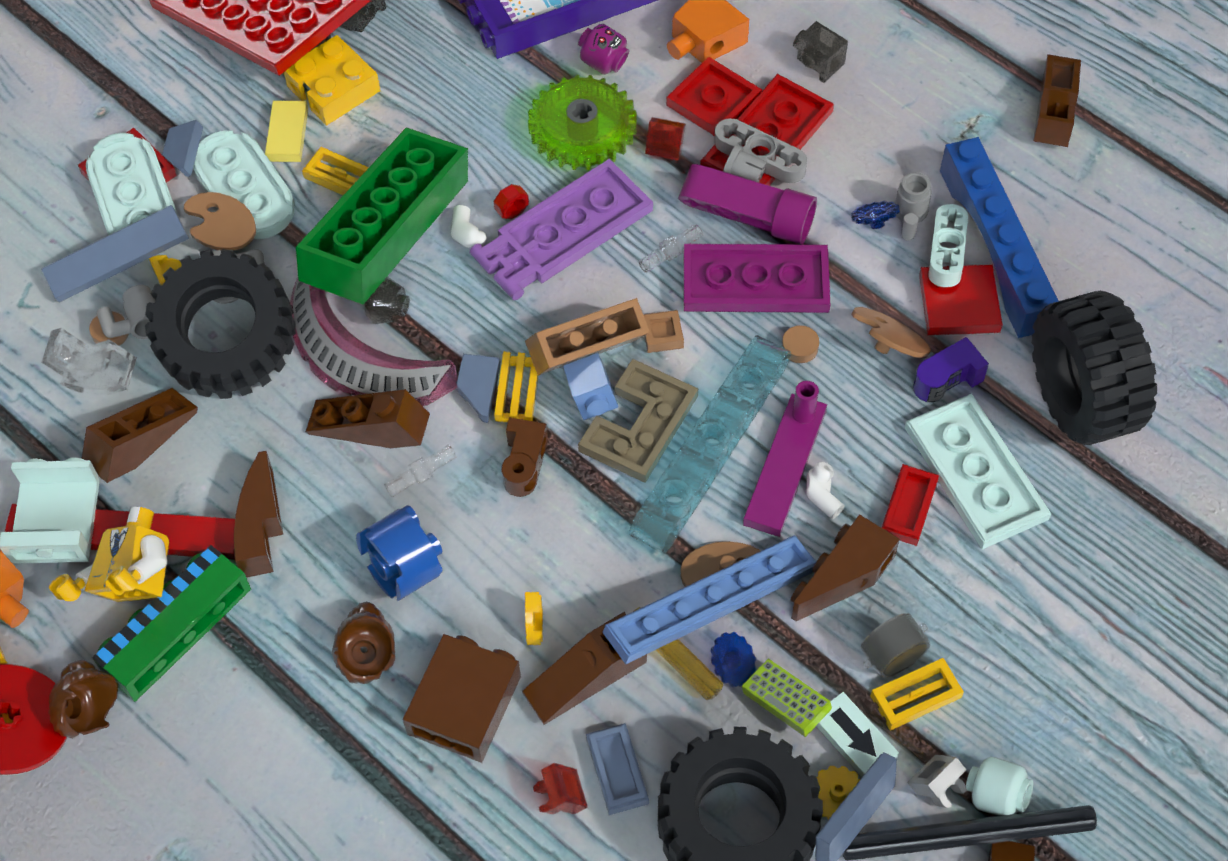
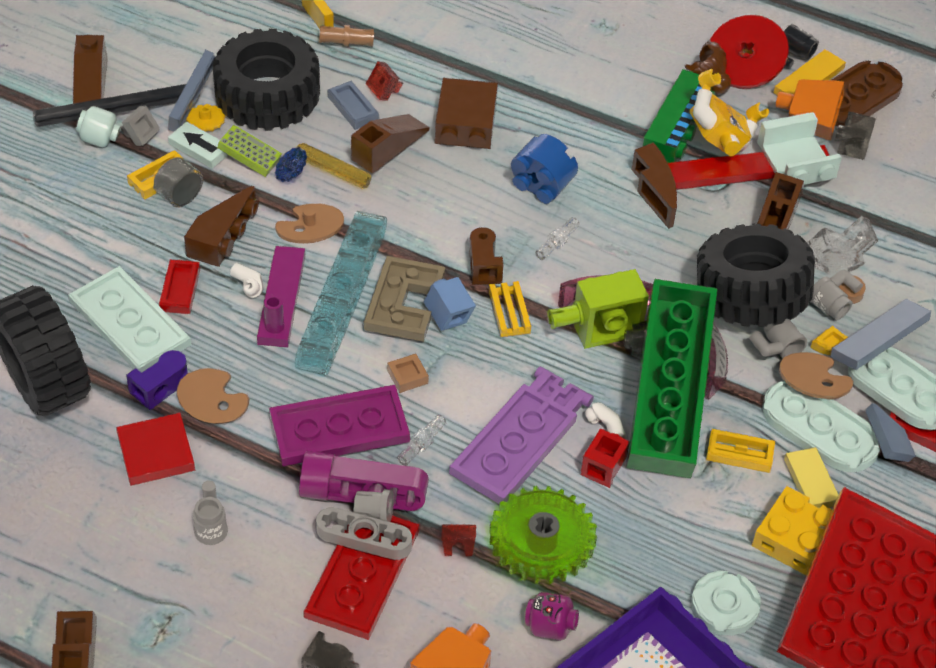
camera: 160 degrees right, 10 degrees down
(367, 629) = (544, 121): reddish brown piece -> none
(372, 419) = (601, 254): reddish brown slope -> none
(416, 324) = (604, 308): none -> lime brick
(434, 42) = (726, 603): none -> light aqua tile
(478, 382) = (538, 303): sand blue tile -> none
(485, 179) = (604, 457): none -> red brick
(511, 201) = (576, 445): red tile -> none
(533, 618) = (437, 166): yellow tile -> none
(587, 336) = (464, 330): medium nougat brick -> none
(708, 599) = (312, 180): medium blue tile -> none
(712, 95) = (425, 599): red tile -> none
(802, 343) = (289, 384): medium nougat tile -> none
(875, 213) = (243, 503): clear blue piece -> none
(941, 254) = (179, 471): light aqua beam -> none
(1020, 275) = (145, 526): blue arch -> none

